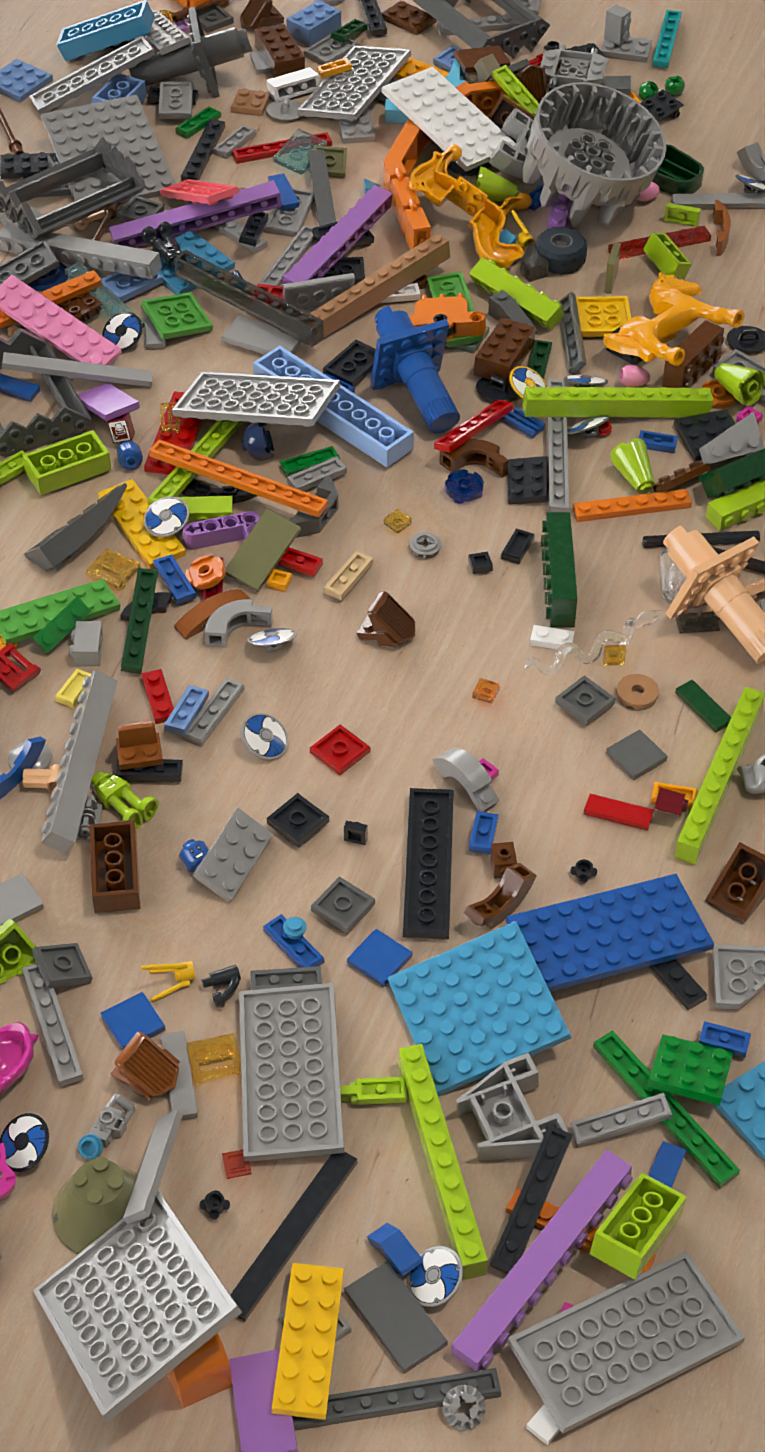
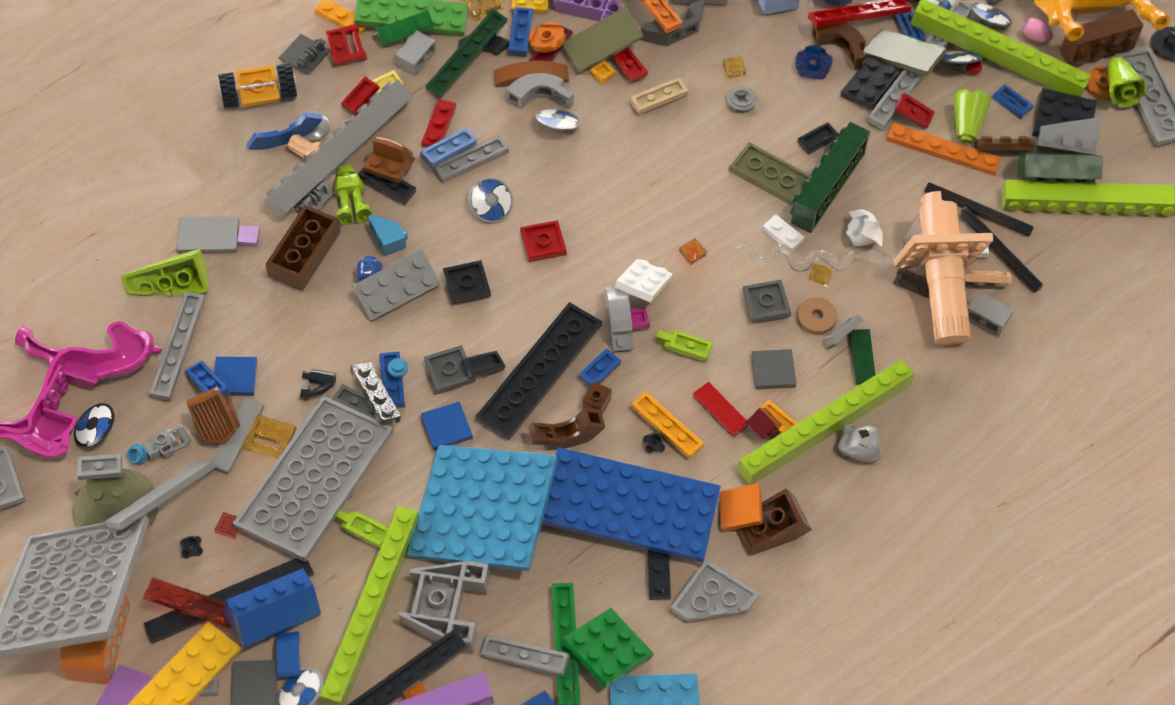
camera: 30 degrees right, 10 degrees up
(45, 885) = (248, 236): none -> lavender tile
(61, 705) = (360, 95): none -> red tile
(62, 965) = (214, 305): dark grey tile -> none
(82, 1166) = (99, 467): none -> light grey plate
(107, 1037) = (205, 378): none -> blue tile
(182, 972) = (294, 357): yellow plant -> none
(187, 815) = (388, 234): none -> dark azure slope
(285, 1249) = (187, 601): none -> clear red plate
(291, 961) = (375, 393): none -> clear smoke plate
(348, 1212) = (272, 608): none -> blue slope
(355, 832) = (501, 316): black plate -> none
(373, 883) = (483, 364): none -> black tile
(387, 622) = (656, 152): reddish brown piece -> none
(465, 734) = (643, 280): none -> white plate
(480, 562) = (774, 137): black plate -> none
(500, 594) = (769, 173): none -> olive tile
(539, 440) = (904, 52): none -> tile
(543, 772) = (685, 344): none -> lime hinge
(583, 848) = (667, 425): none -> light orange plate
(585, 484) = (914, 110): none -> red plate
(622, 598) = (864, 229): none -> white hair
(671, 691) = (843, 330): none -> light grey tile
(708, 883) = (741, 507): none -> orange tile
(725, 1038) = (655, 639): blue plate -> none
(748, 410) = (1111, 118): dark pink plate -> none

